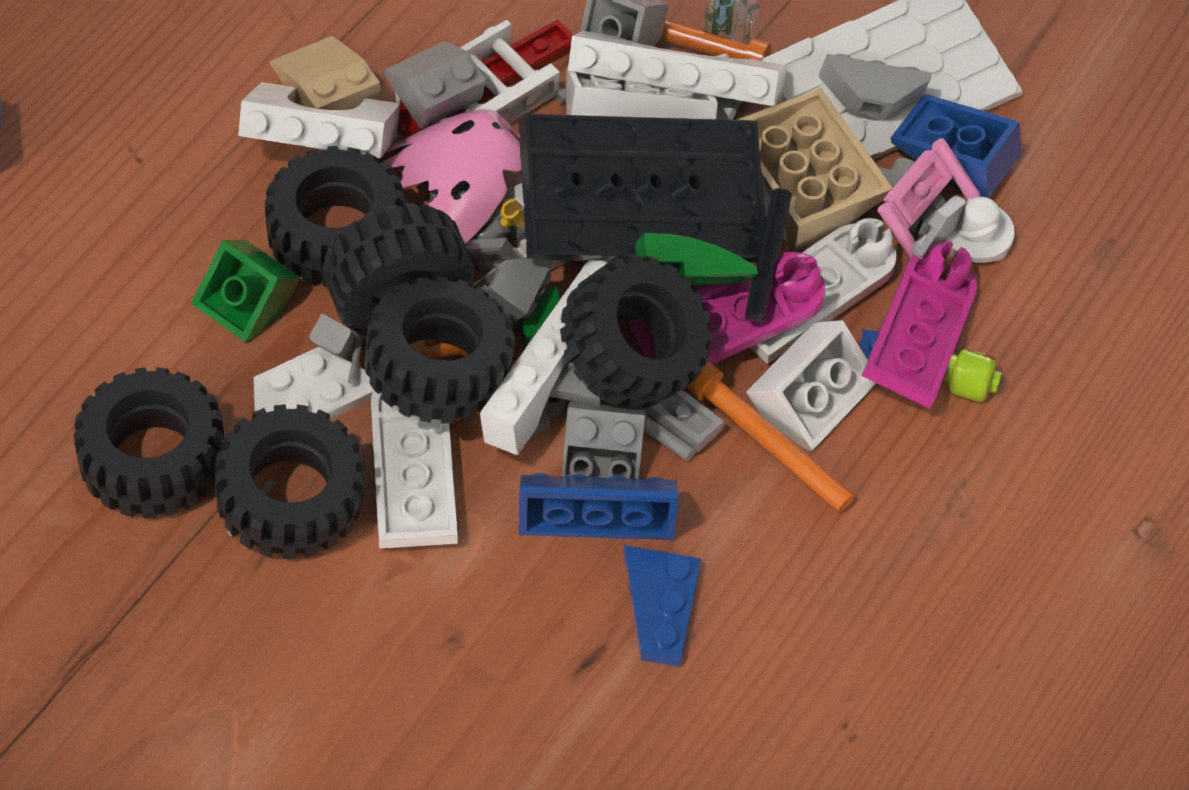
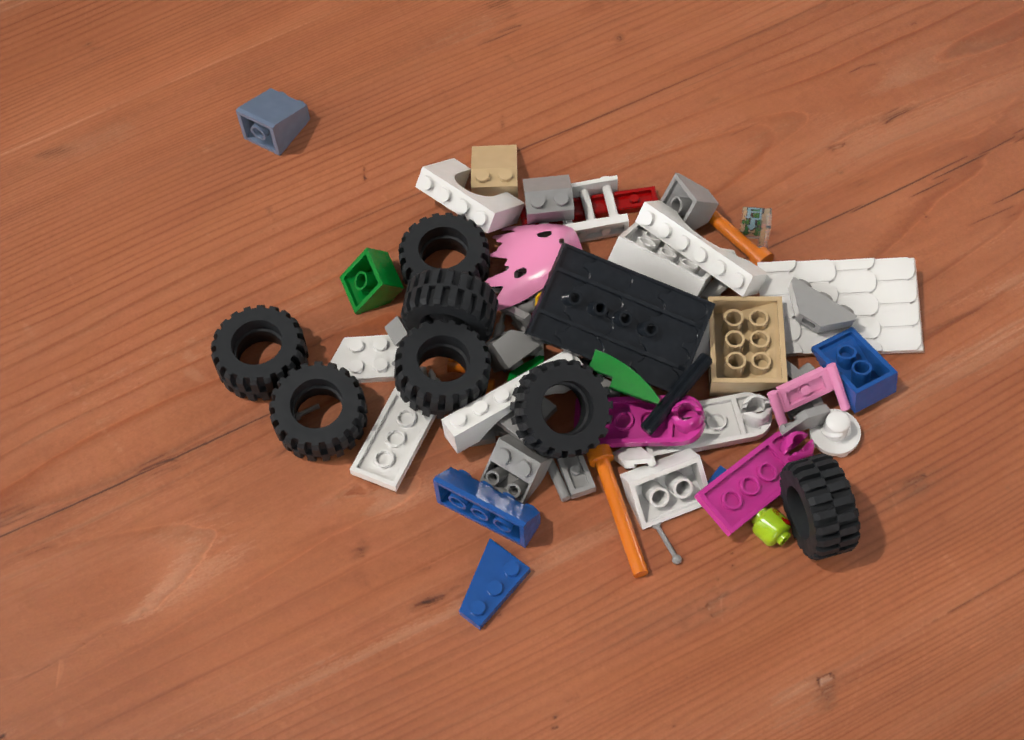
camera: 35 degrees right, 5 degrees up
(747, 364) = (630, 456): none -> white tile
(877, 466) = (676, 559): none -> light grey hinge
(1029, 315) = (820, 506): none -> black tyre

